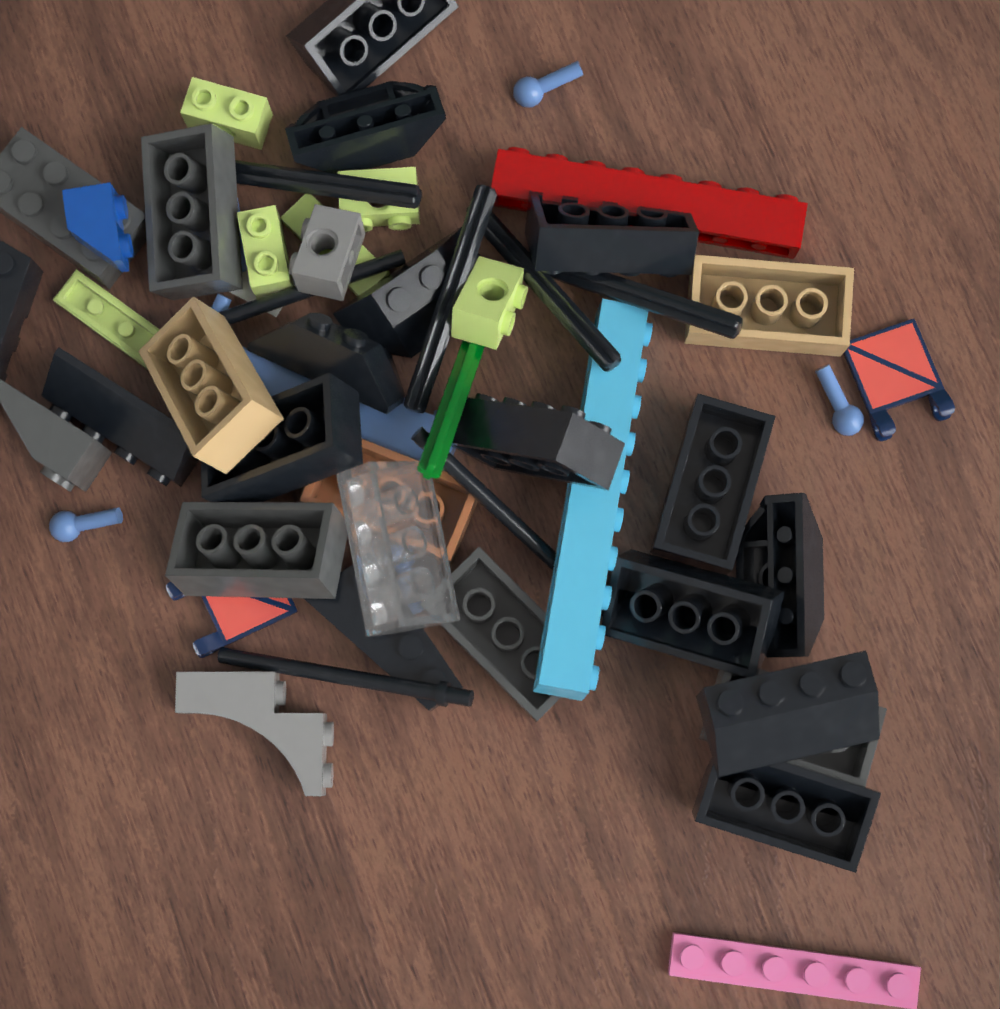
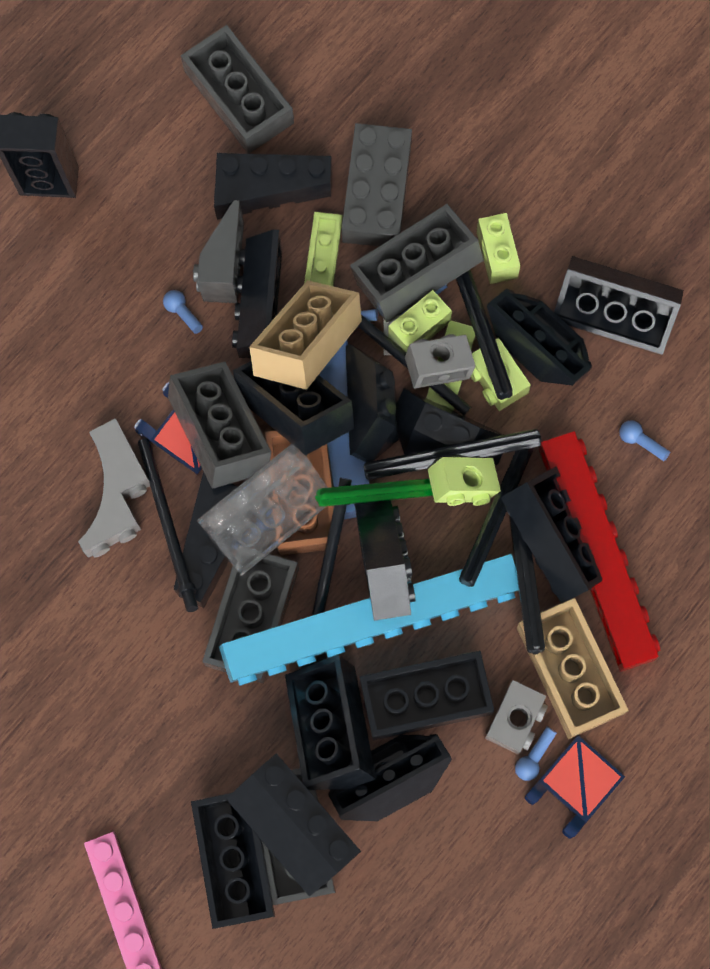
camera: 65 degrees right, 5 degrees down
(96, 221) = (373, 207): blue slope -> none
(791, 422) = (517, 699): none -> light grey brick

